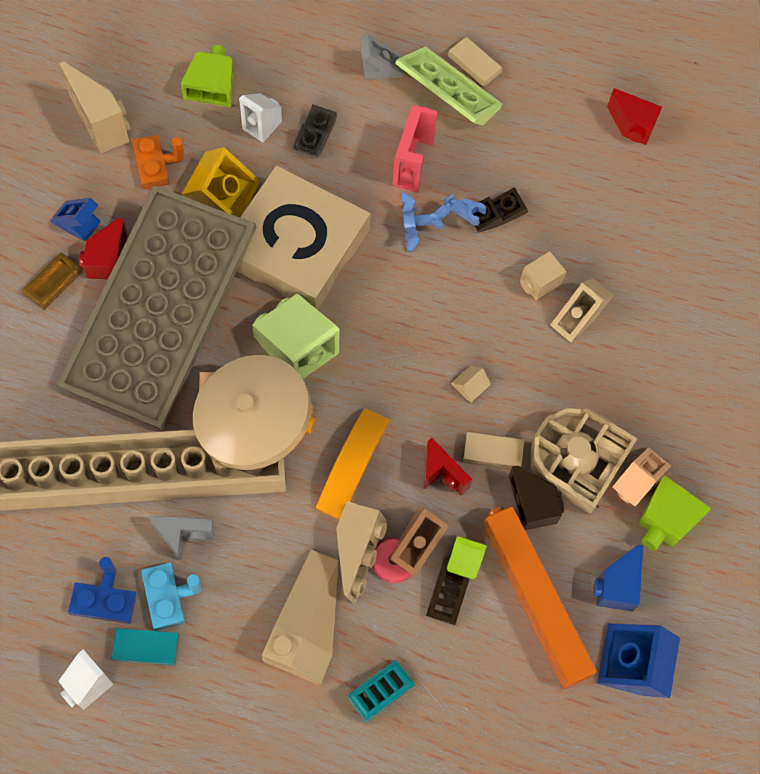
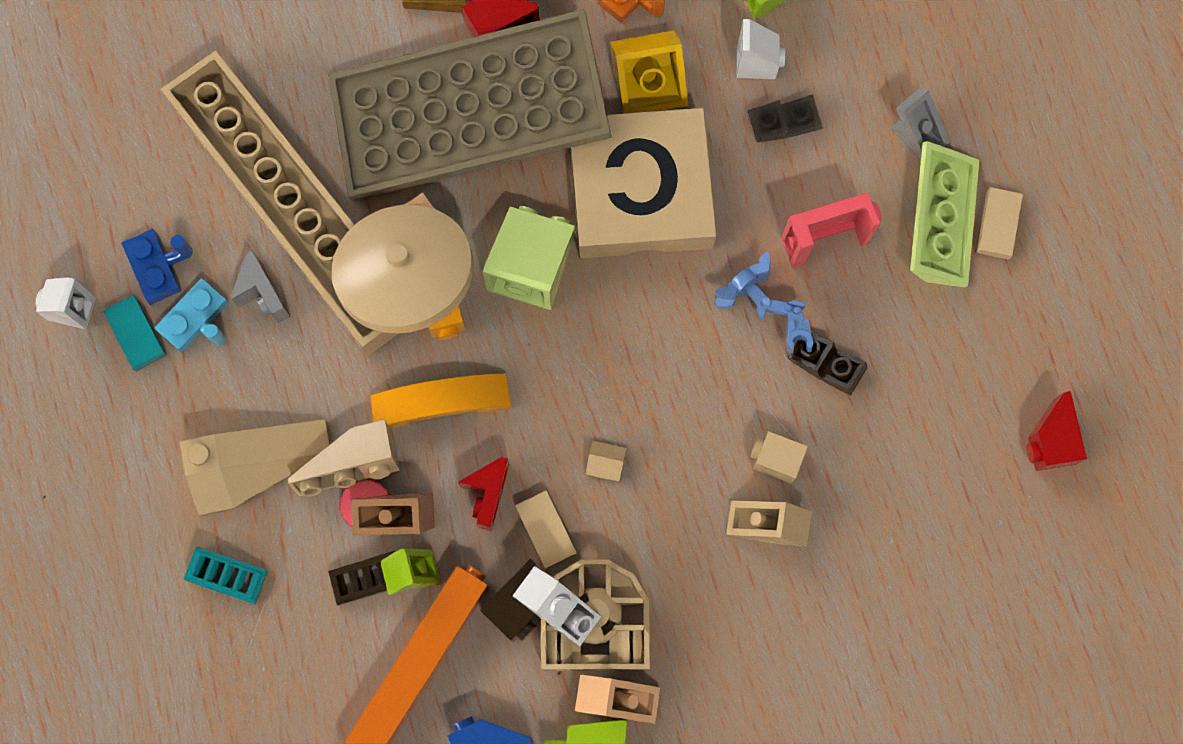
camera: 60 degrees right, 10 degrees up
(561, 463) = (557, 605): none -> white slope

